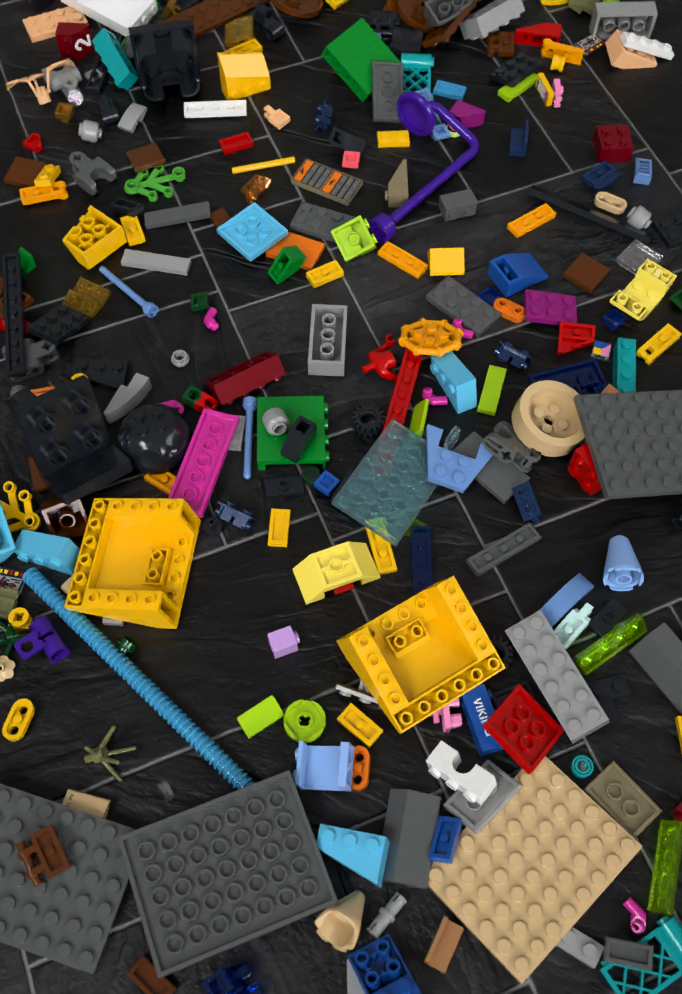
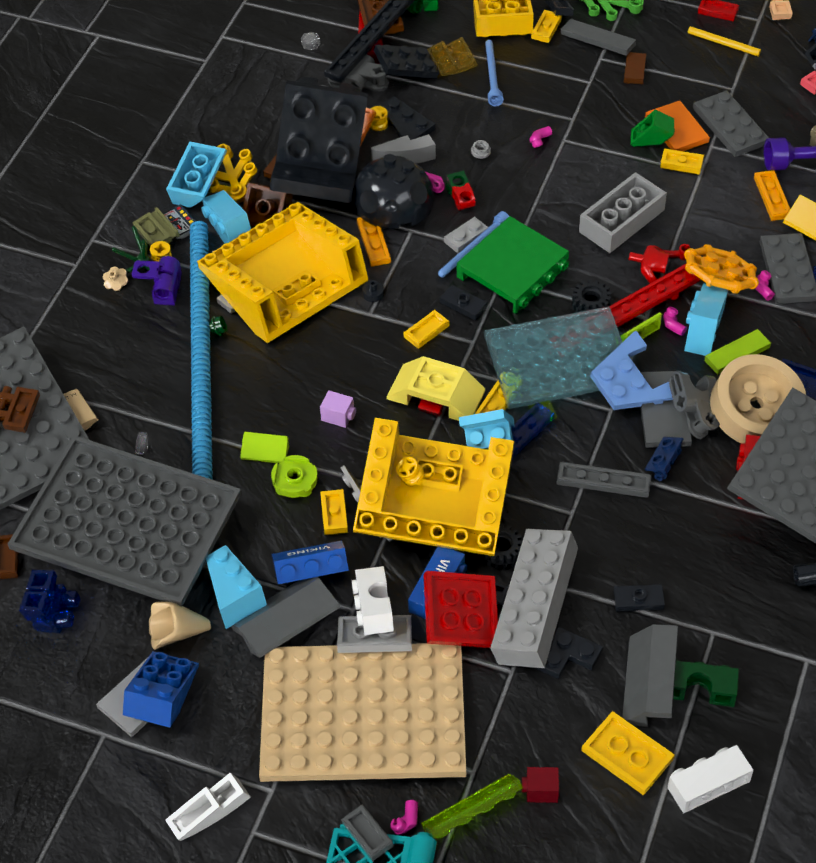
camera: 45 degrees right, 10 degrees down
(18, 720) = (91, 319): yellow plate -> none
(101, 754) = (123, 383): olive plant -> none
(156, 262) = (540, 64): light grey tile -> none
(200, 301) = (544, 115): dark green plate -> none
(204, 459) = (415, 234): dark pink plate -> none
(228, 511) = (403, 299): dark blue hinge -> none
(245, 377) = (518, 197): dark red slope -> none
(252, 231) = (649, 86): medium azure plate -> none
(255, 187) = (693, 52): clear orange plate -> none
(275, 421) = (501, 240): light grey head -> none
(299, 439) = (506, 264): black slope -> none
(310, 475) = (495, 309): clear green tile -> none
(324, 767) = (273, 516): light blue panel -> none
(326, 483) = (500, 319): blue plate -> none
(327, 182) = (770, 89): tile -> none
(354, 238) = (739, 147): lime plate -> none
(361, 769) = (300, 537): orange plate -> none
(386, 915) = (211, 651): light grey pin -> none
(387, 781) = (310, 562): none -> blue brick
(390, 654) = (404, 469): none -> yellow wheel
(407, 576) = (483, 426): none -> medium azure bracket
(443, 945) = (231, 704): medium nougat panel -> none
(445, 839) = (310, 635): blue plate -> none
(449, 721) = (408, 556): bright pink hips -> none
(452, 438) = (652, 361): clear light blue tile -> none
(519, 357) = (794, 343): dark blue hinge -> none
(566, 598) = (614, 552): medium blue slope -> none
(573, 625) = (597, 578): light aqua hinge -> none
(581, 947) = (335, 799): light grey plate -> none
(582, 766) = (485, 684): teal tile -> none
(611, 644) = (614, 614): clear neon green plate -> none
(622, 566) = (694, 563): light blue cone -> none
(622, 799) = (492, 735): dark tan tile -> none

